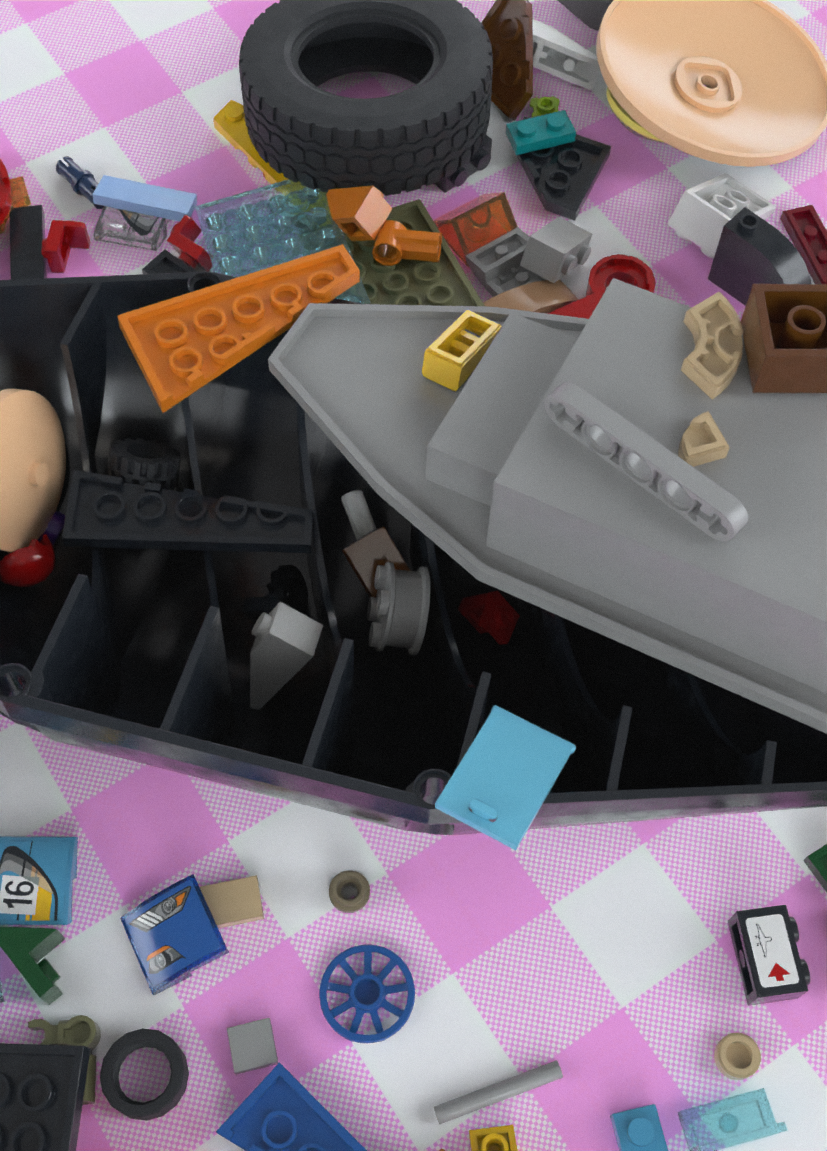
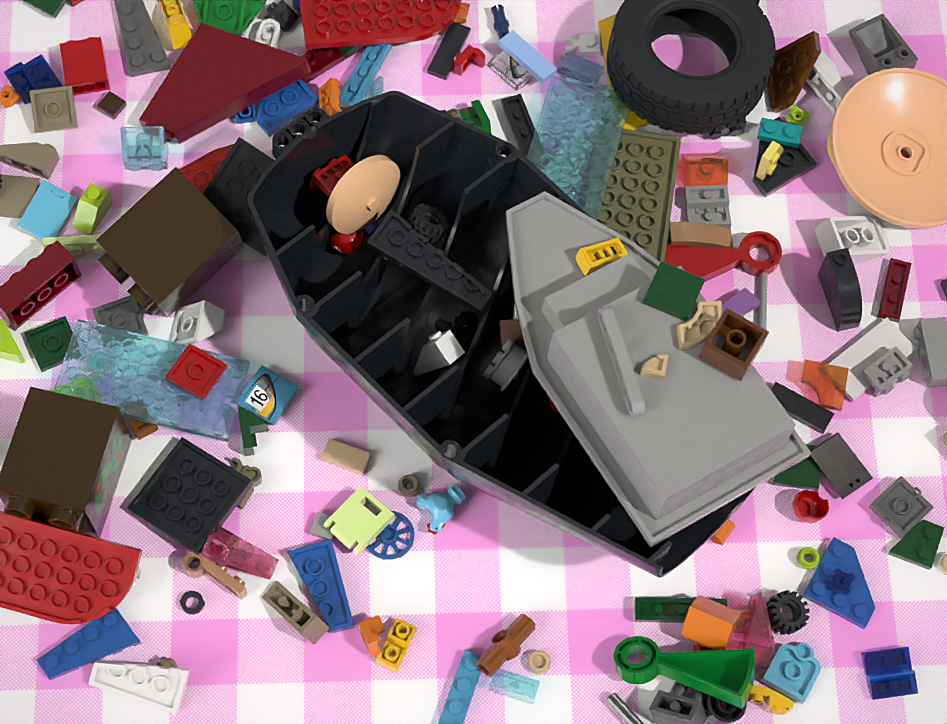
camera: 30 degrees right, 5 degrees up
(115, 1057) = (270, 492): black tyre -> none
(173, 934) = (317, 457): slope -> none
(182, 240) = (532, 93): red bracket -> none
(210, 330) = (491, 179): orange wing -> none
(213, 153) = (586, 44): none -> white plate
(222, 184) = (579, 68): none -> clear light blue panel
(306, 1006) = (356, 522): none -> yellowish green container
(358, 211) = (634, 131): orange slope -> none
(398, 243) = (645, 161): orange piece -> none
(422, 895) = (440, 506): none -> medium azure animal
(498, 1092) = (420, 611): light grey bar -> none
(505, 777) = (483, 461): medium azure container -> none
(556, 249) = (736, 211): light grey brick -> none
(557, 156) = (768, 160): none -> light yellow wing
(636, 316) = (673, 291): none -> dark green tile
(674, 1064) = (505, 645): none -> dark orange piece
(768, 955) = (583, 628): brick -> none

